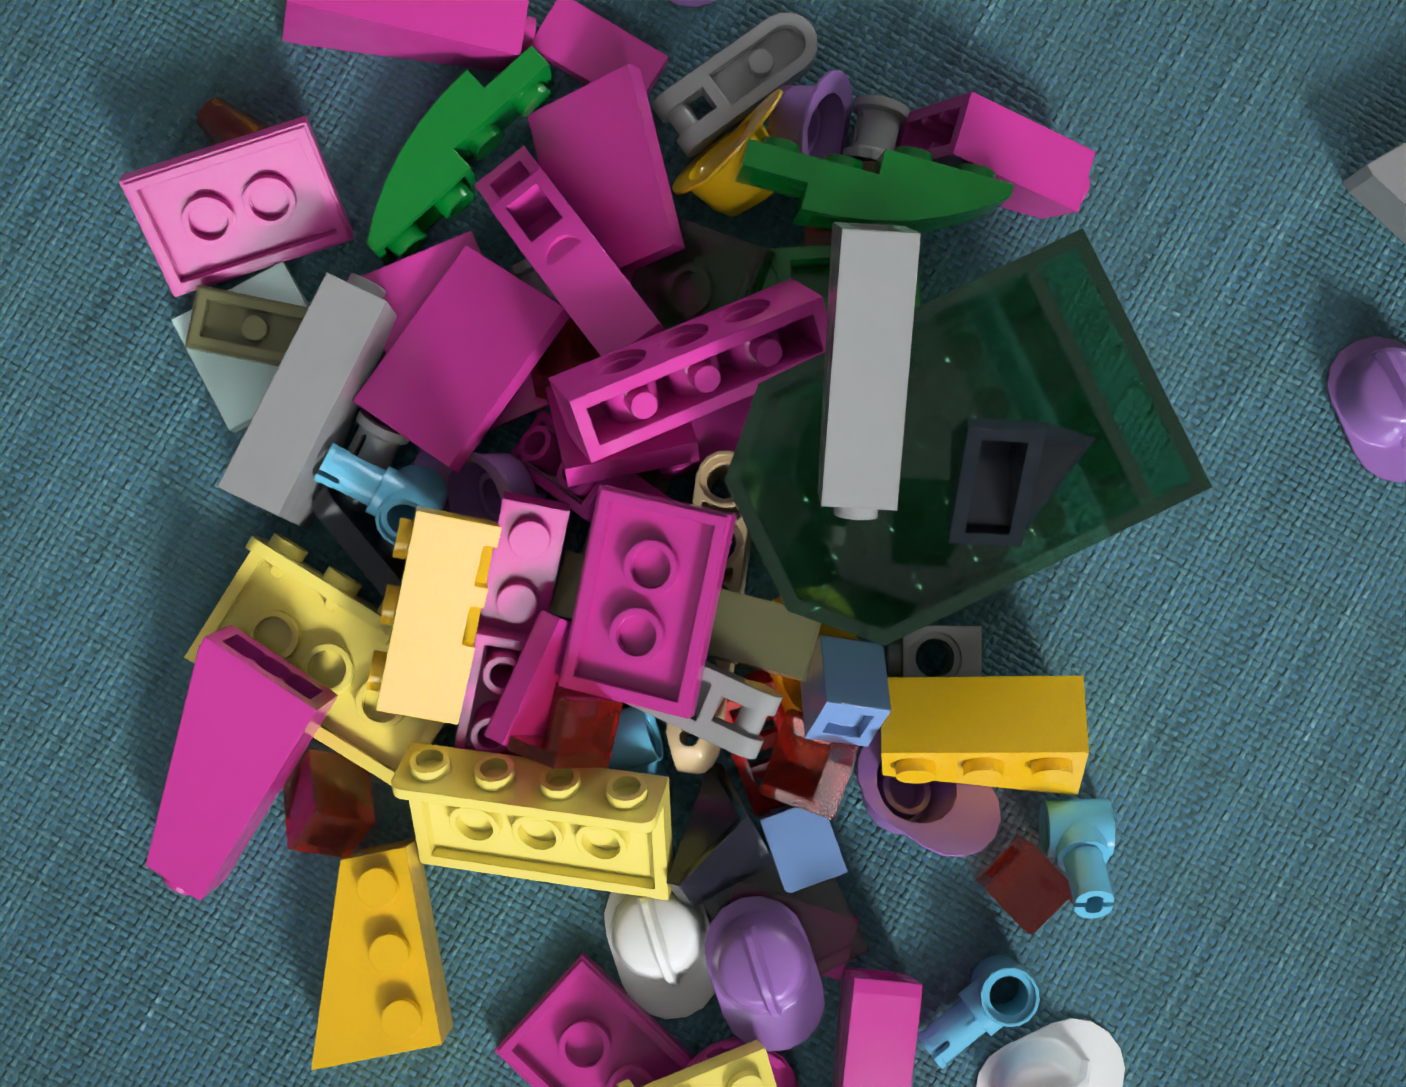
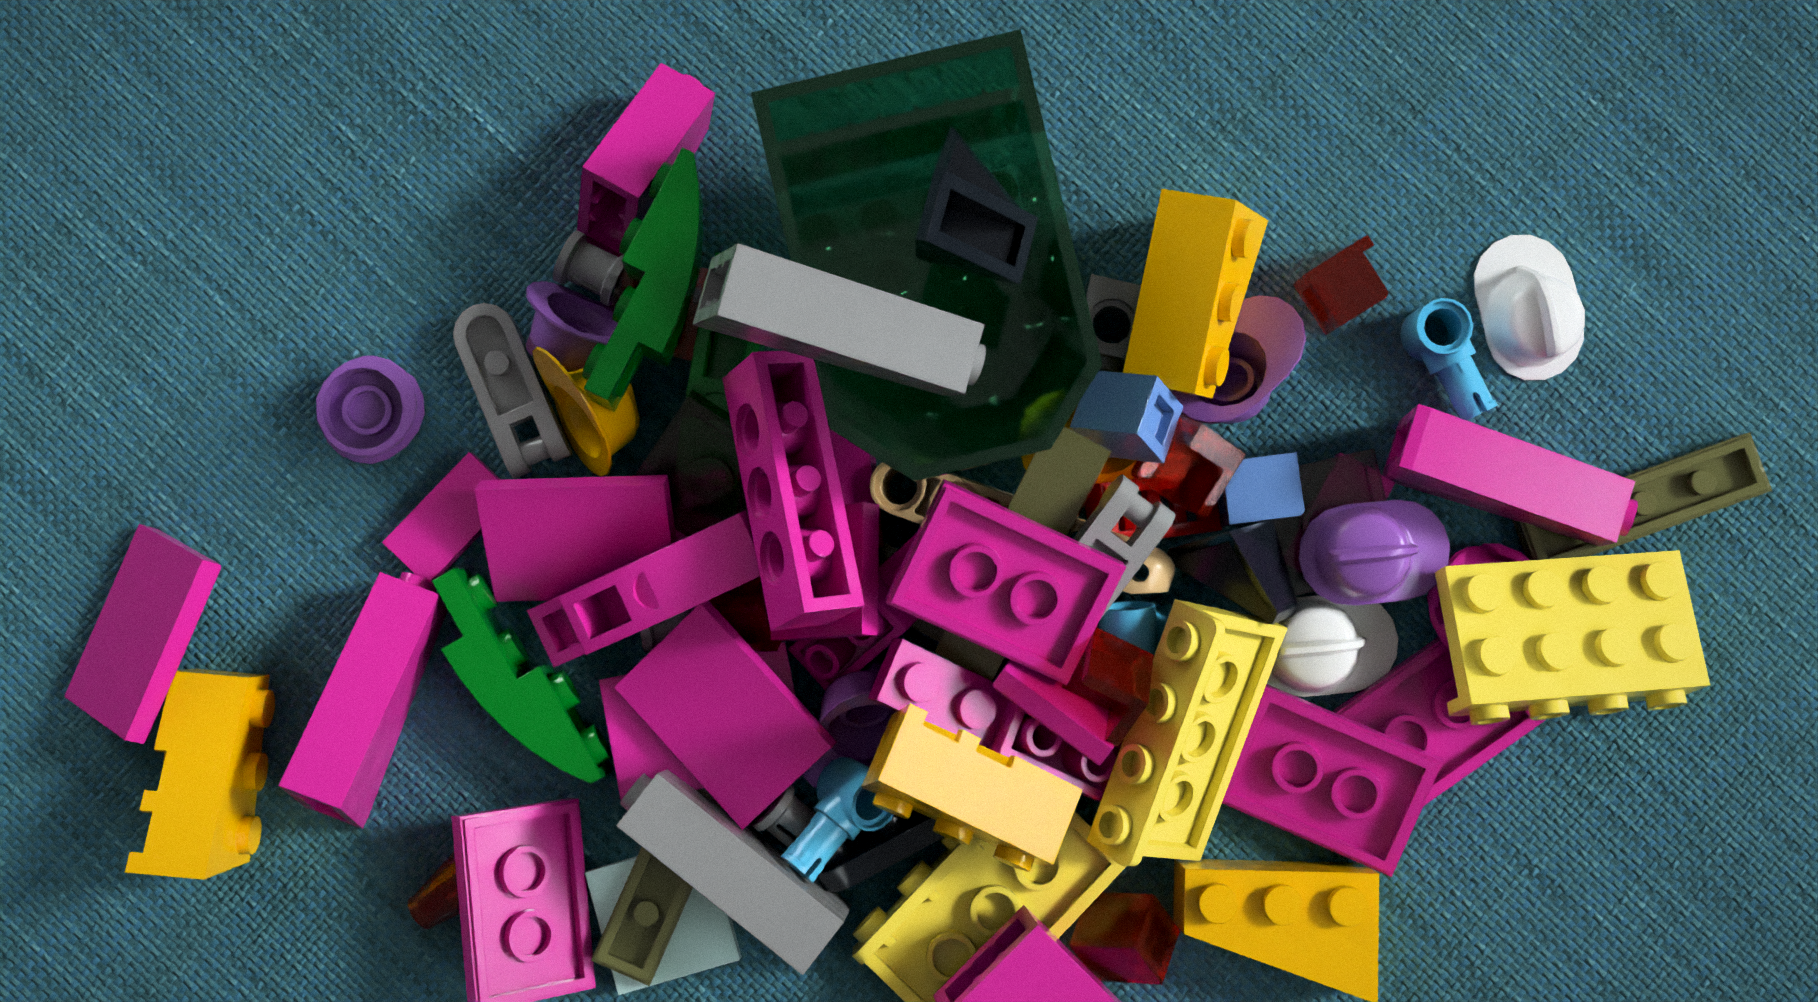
camera: 80 degrees left, 0 degrees up
(527, 978) = (1331, 780): none -> dark pink tile
(1082, 841) = (1310, 225): medium azure pin -> none

